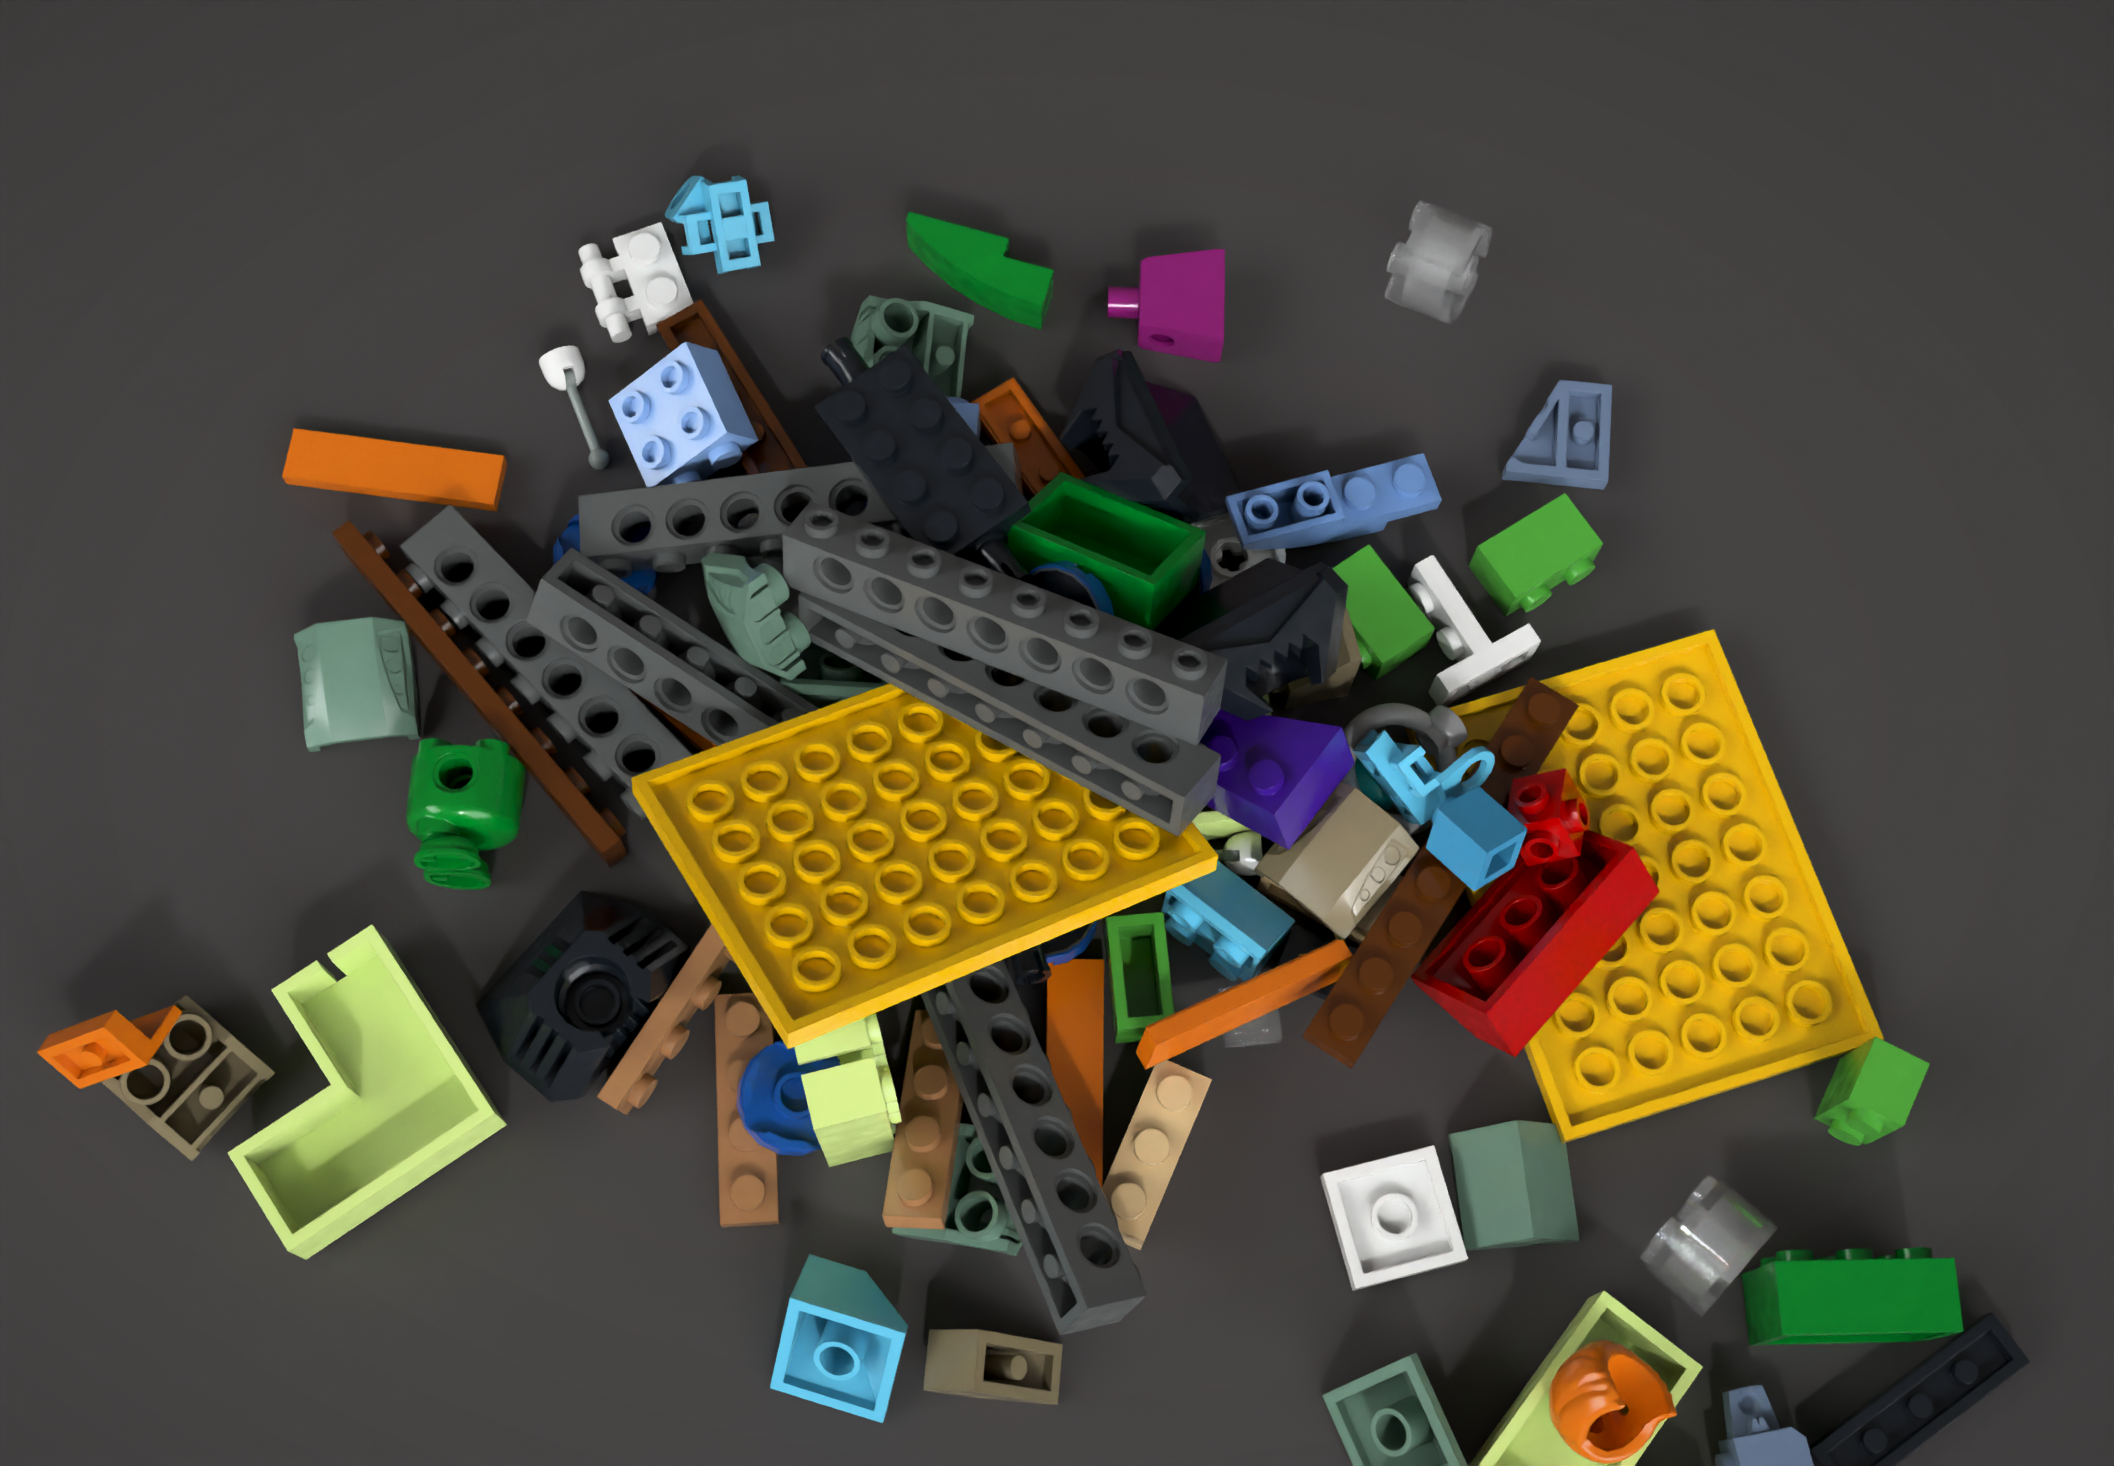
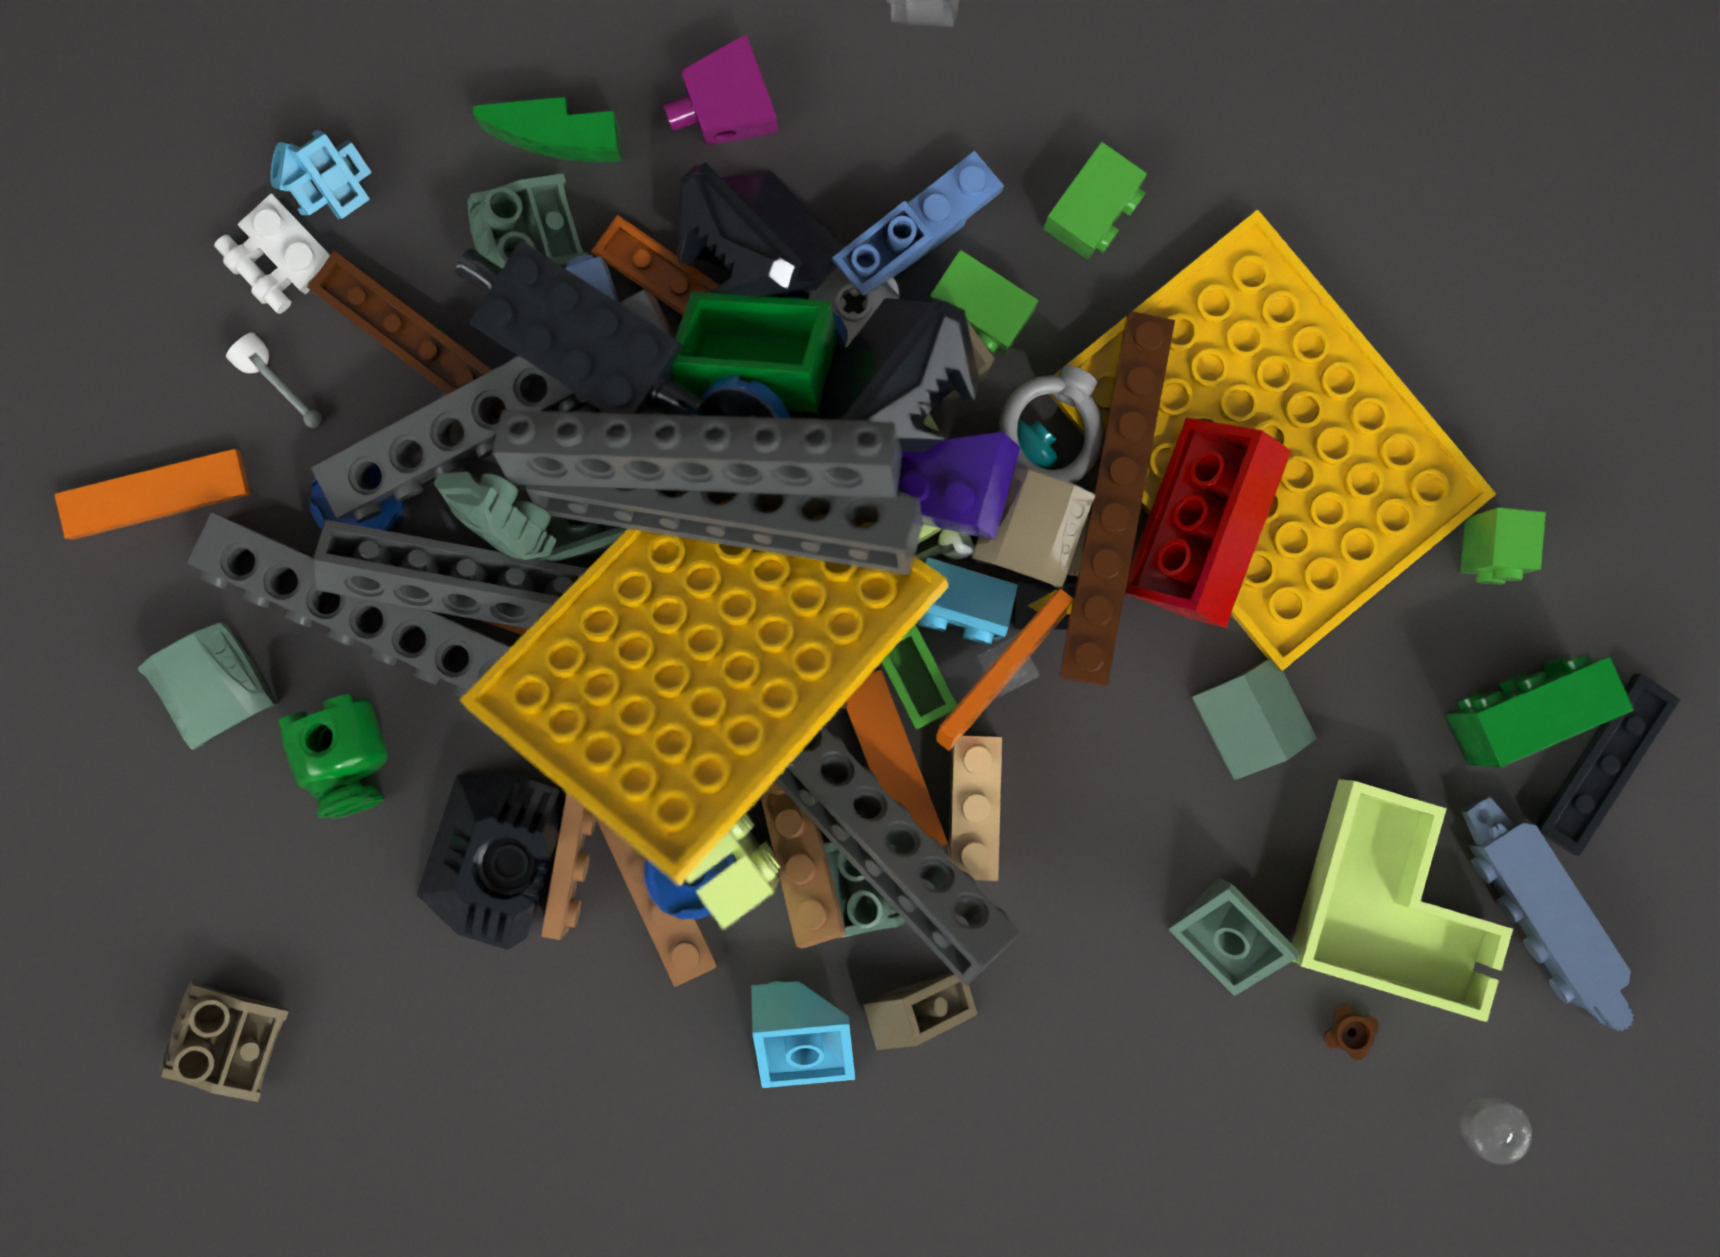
camera: 20 degrees left, 15 degrees up
(107, 1045) = (156, 1052): orange panel -> none
(394, 1105) = (389, 1000): yellowish green piece -> none
(495, 707) = (289, 642): reddish brown plate -> none
(683, 418) = (366, 364): light blue brick -> none
(1393, 1217) = (1174, 779): white plate -> none
(1418, 790) = (1071, 444): medium azure piece -> none
(1463, 637) = (1059, 293): white bracket -> none
(1475, 837) = (1137, 473): dark azure brick -> none
(1553, 815) = (1184, 429): red brick -> none
(1567, 439) = (1085, 89): sand blue wing -> none
(1607, 1402) = (1386, 866): orange piece -> none
(1710, 1245) = (1419, 710): clear brick -> none

